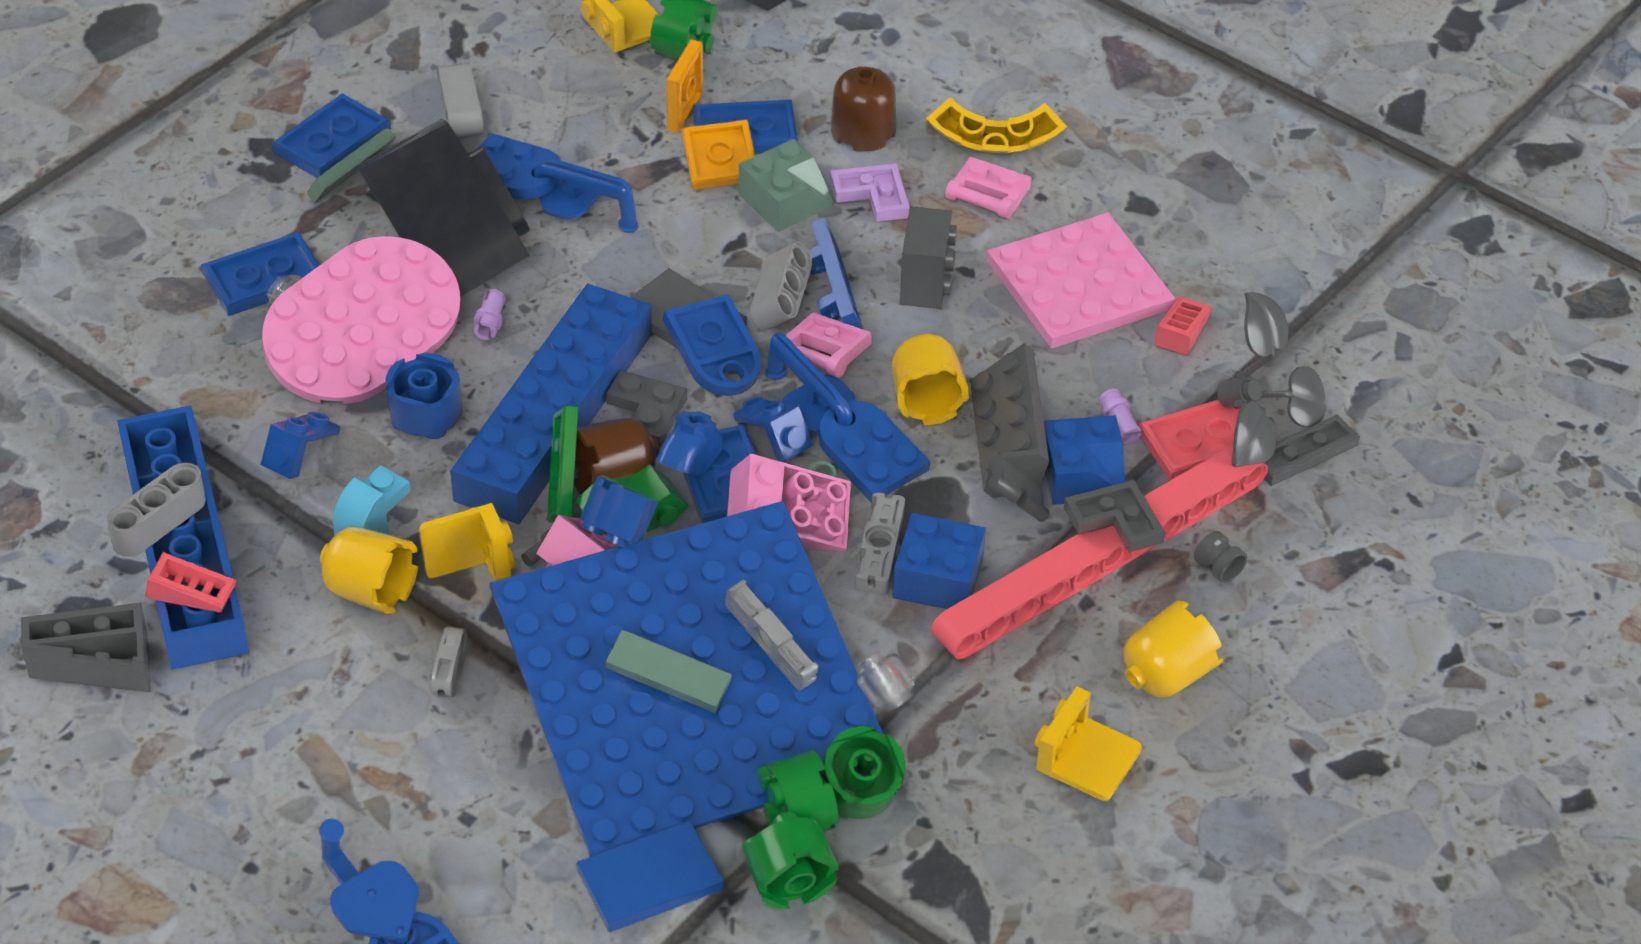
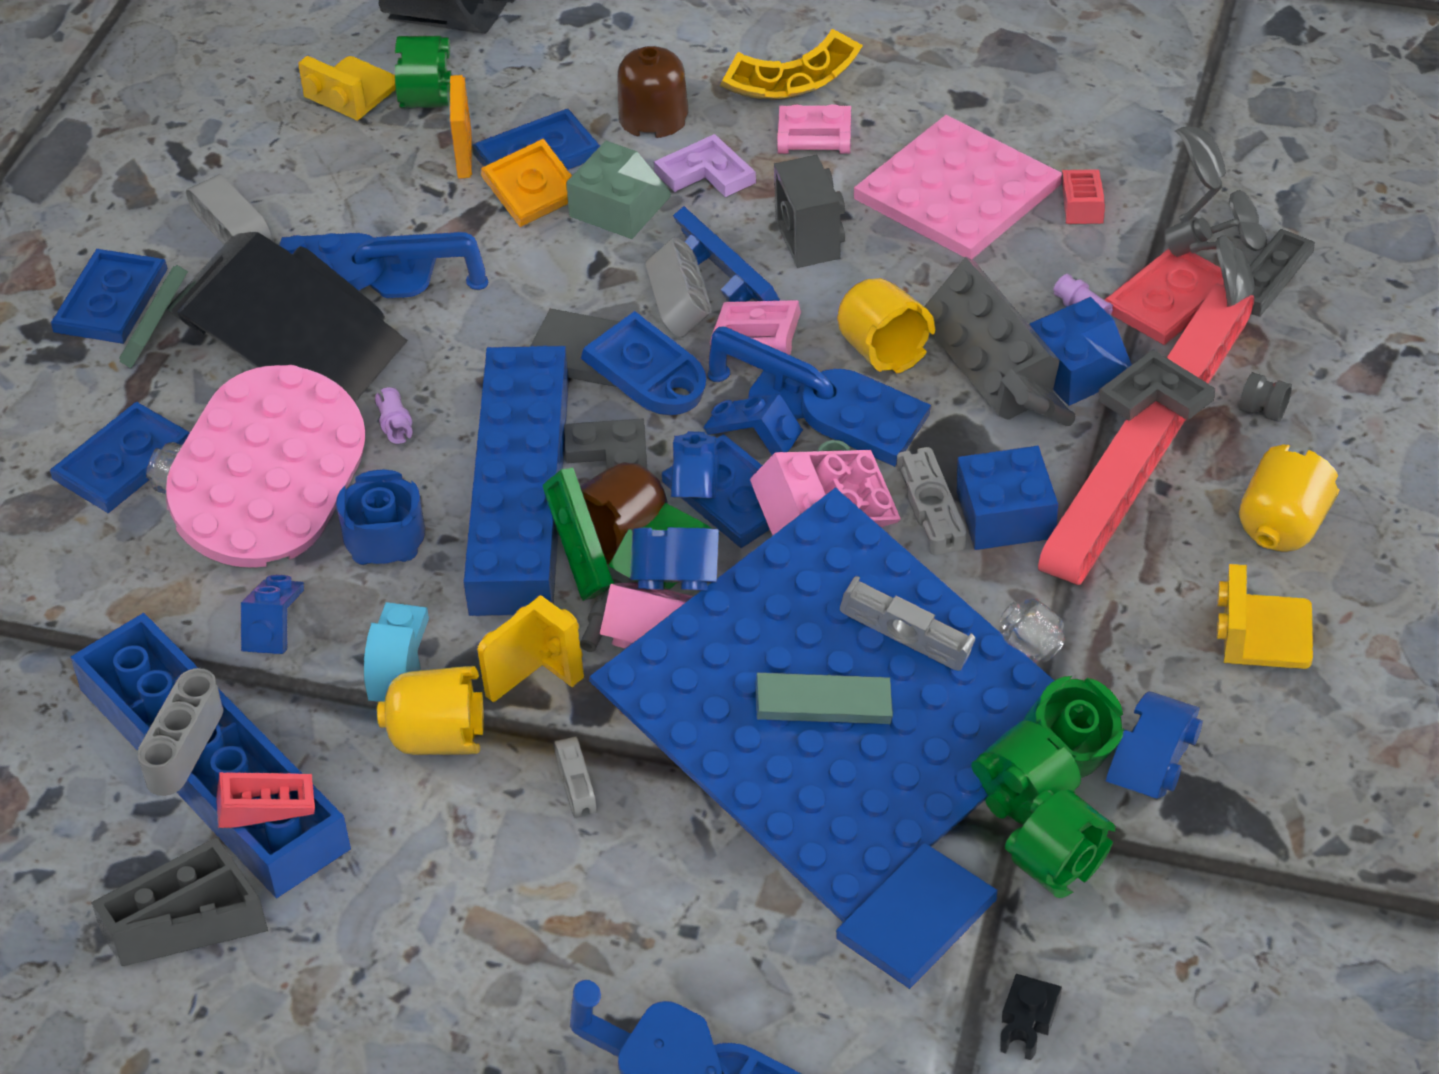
camera: 20 degrees left, 0 degrees up
(928, 811) = (1150, 753): none -> blue brick

